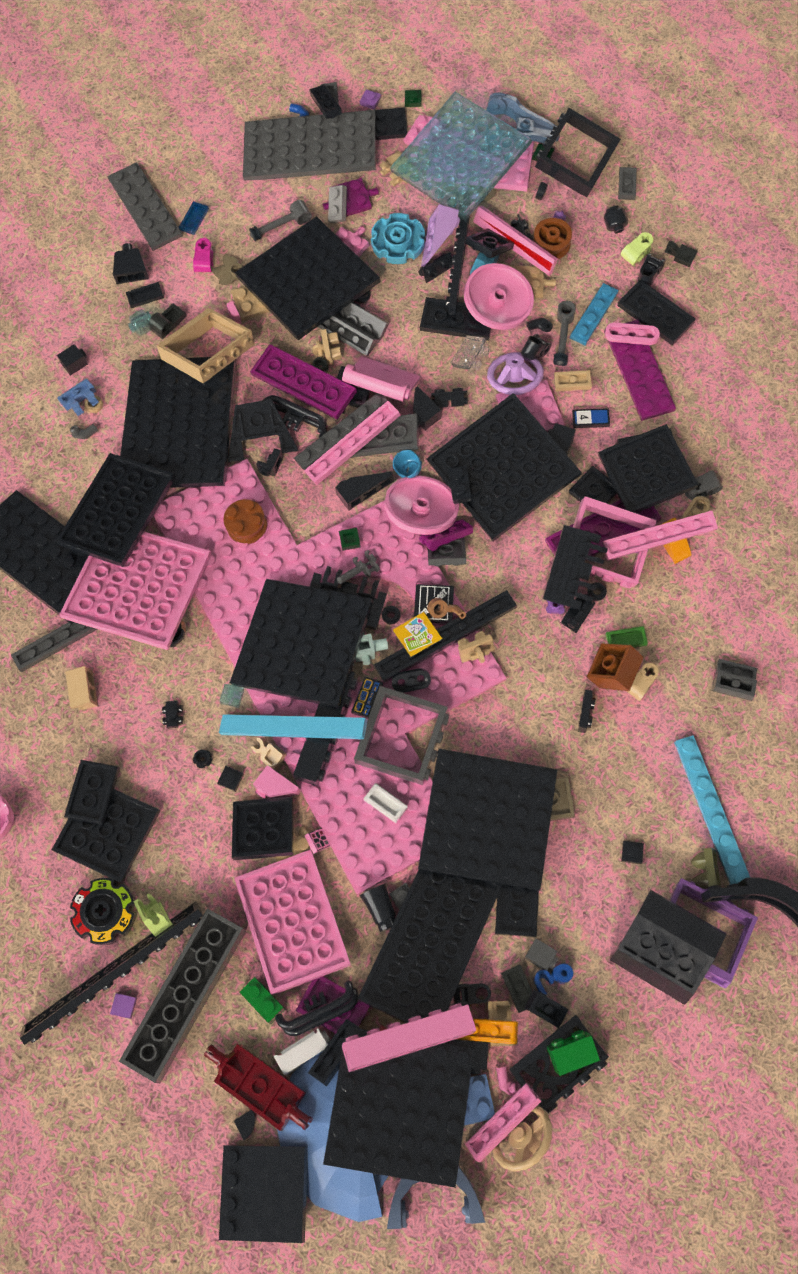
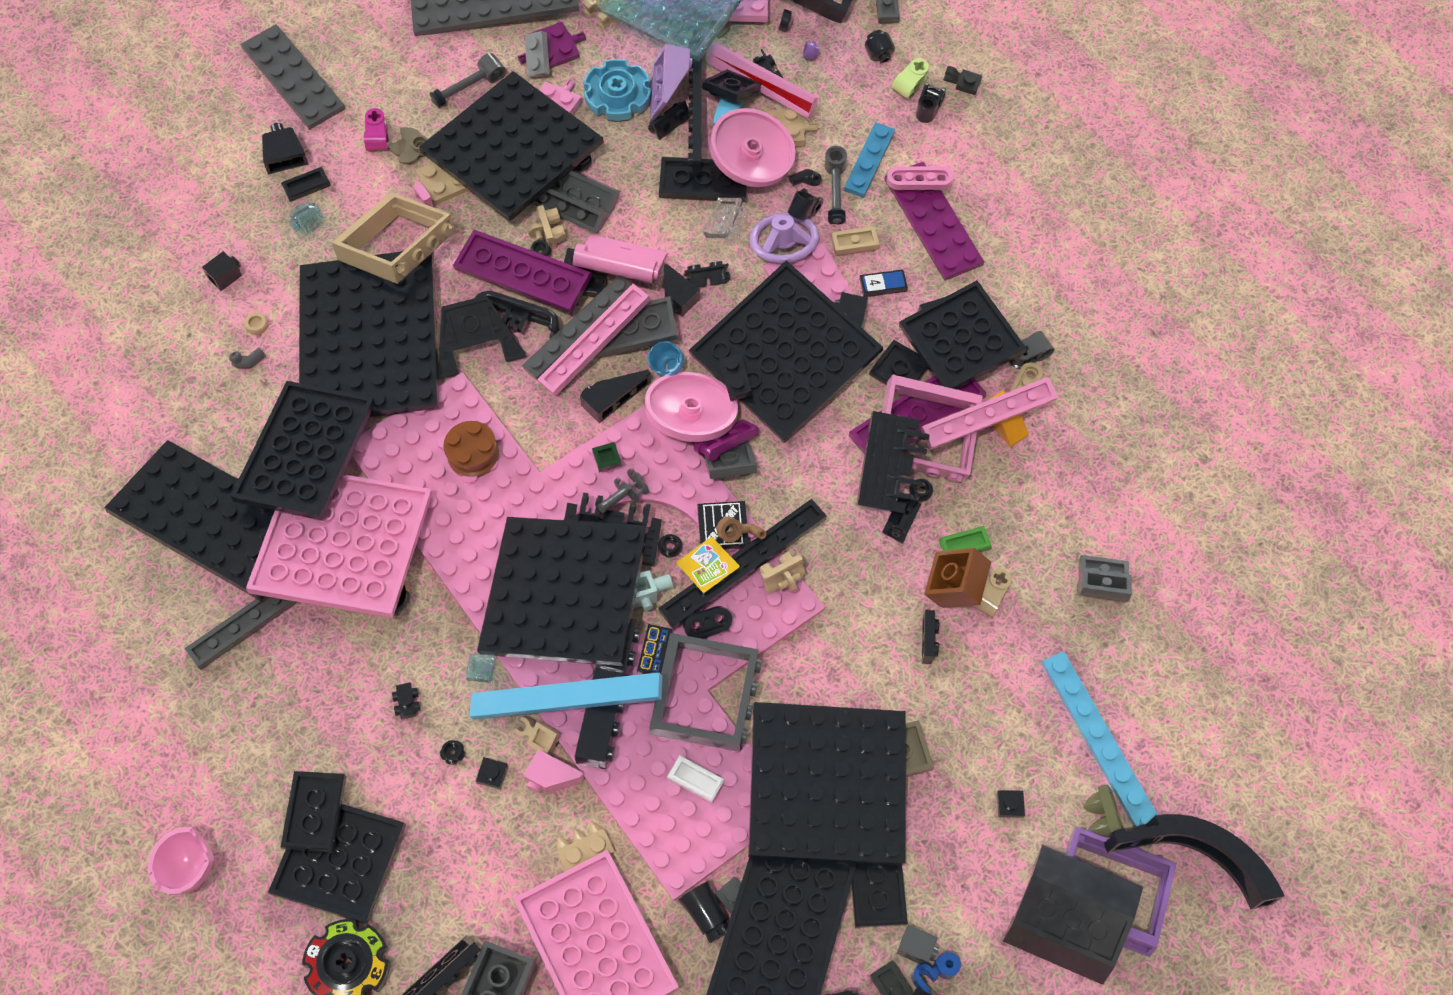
camera: 15 degrees left, 5 degrees down
(77, 394) = (229, 316): medium blue plate -> none
(81, 688) = (283, 681): tan hinge -> none
(153, 915) = (415, 959): yellowish green hinge -> none
(164, 323) = (339, 213): pearl dark grey plate -> none
(193, 218) = (357, 86): clear blue tile -> none
(262, 828) = (542, 830): black plate -> none
(273, 463) = (495, 376): black bracket -> none
(317, 840) = (614, 837): bright pink tile -> none
(553, 236) = (808, 71): dark orange wheel -> none
(559, 609) = (870, 517): medium lavender plate -> none
(656, 310) = (943, 148): black plate -> none

